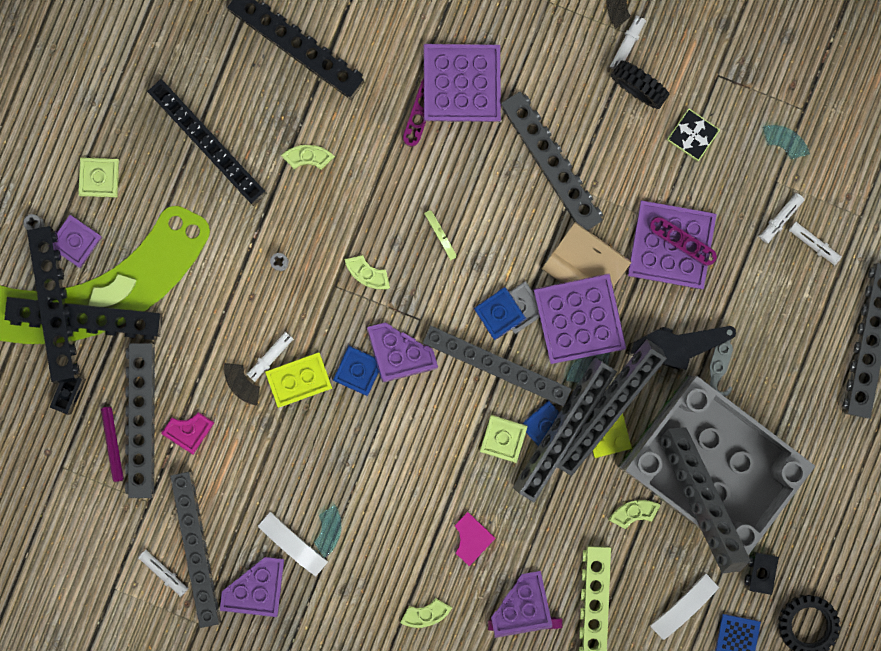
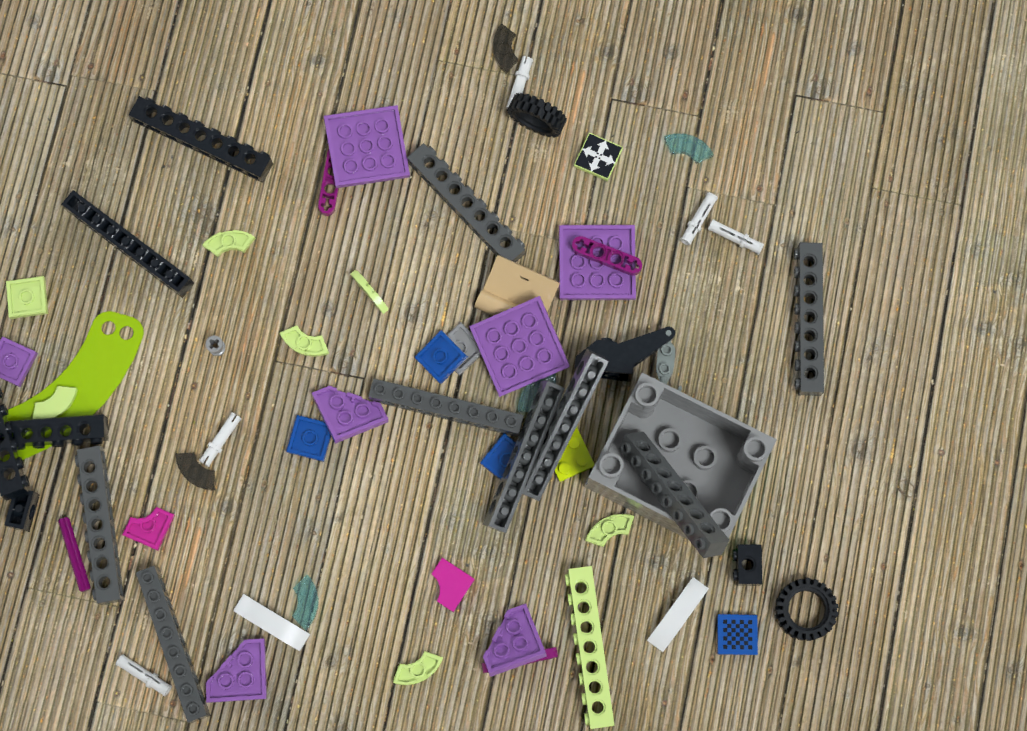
camera: 10 degrees left, 10 degrees down
(298, 380) = (252, 457): neon yellow plate -> none
(503, 438) = (466, 478): yellowish green tile -> none

